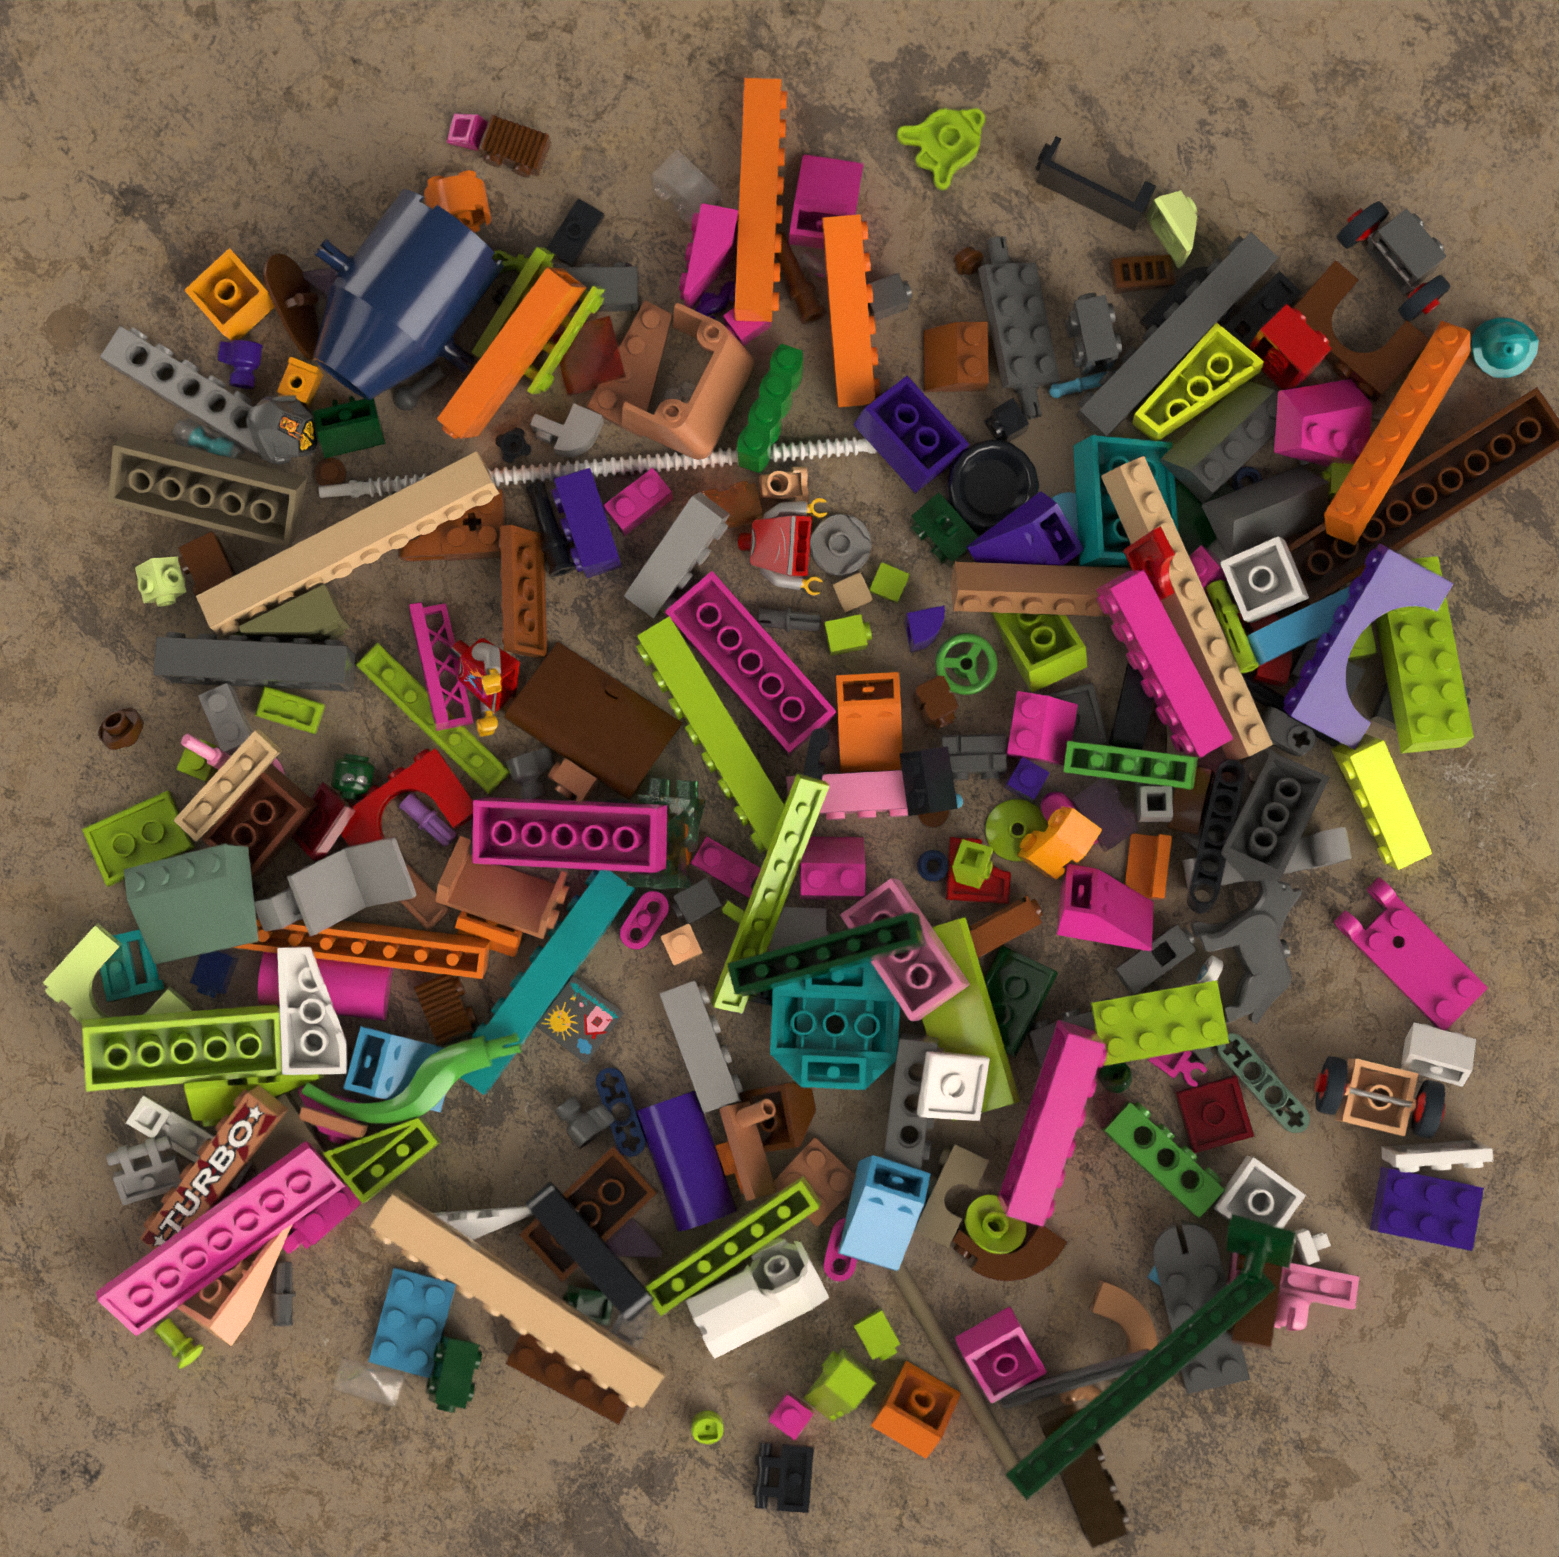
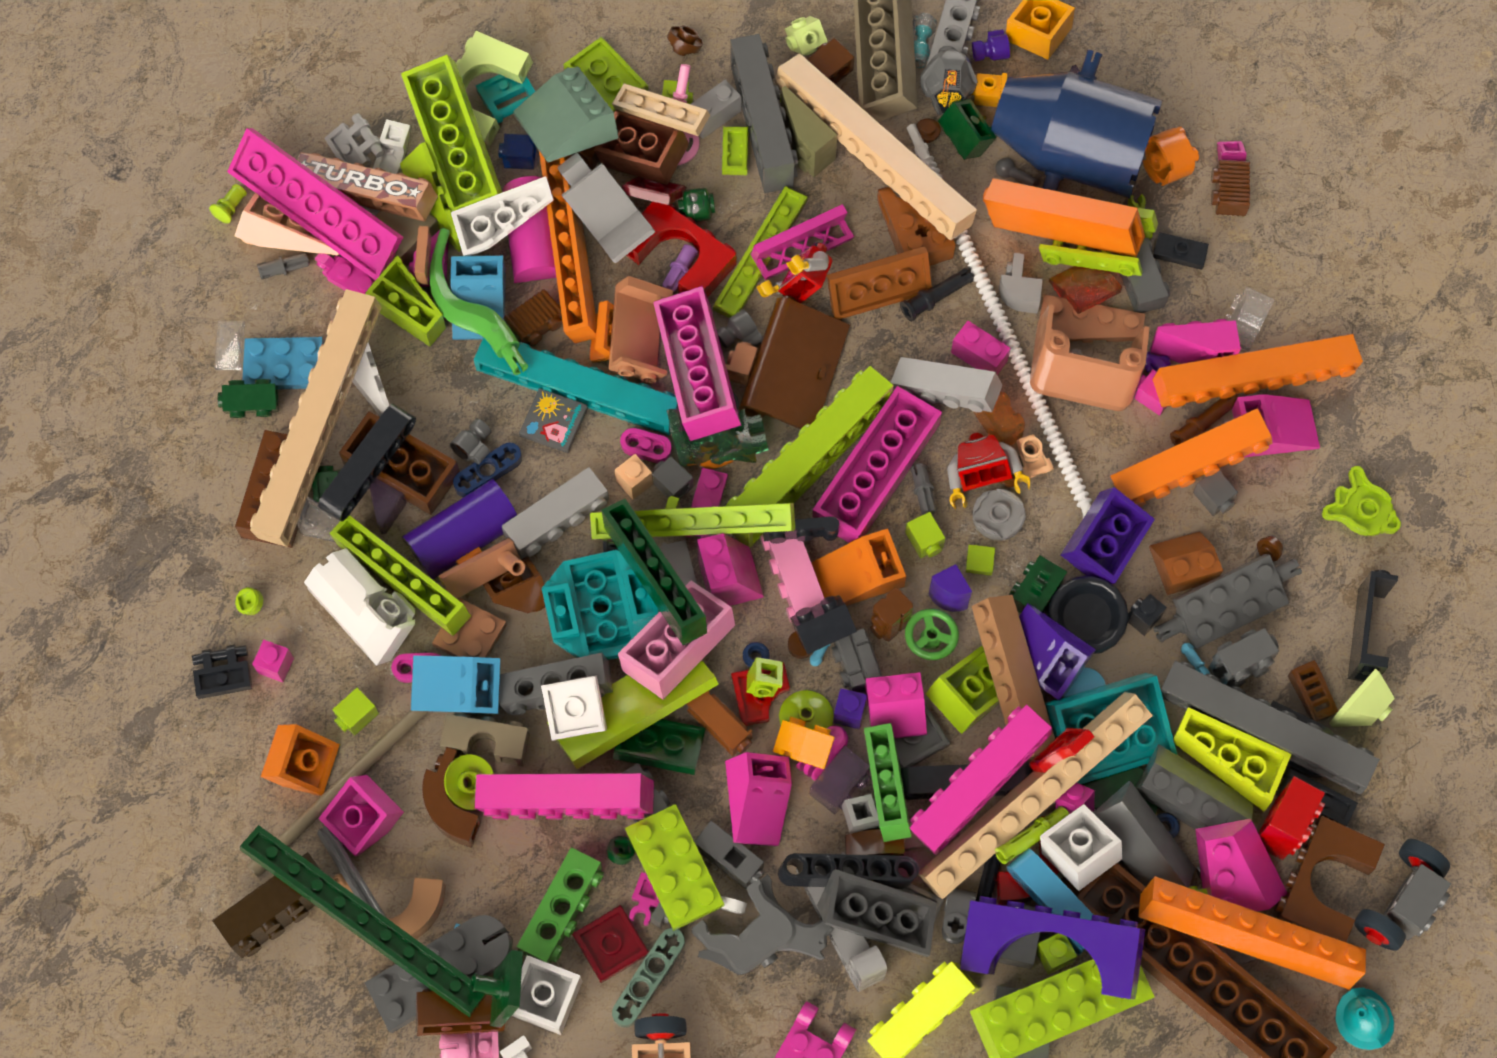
camera: 75 degrees right, 15 degrees down
(293, 301) = (1056, 56): reddish brown shield -> none
(423, 904) = (615, 273): nougat tile -> none
(505, 441) = (995, 244): black plate -> none
(585, 523) = (941, 318): dark purple brick -> none
(770, 408) = (1084, 422): green brick -> none
(840, 1385) = (309, 688): lime wedge -> none
(852, 593) = (962, 533): tan tile -> none
(1148, 864) = (808, 831): orange panel -> none

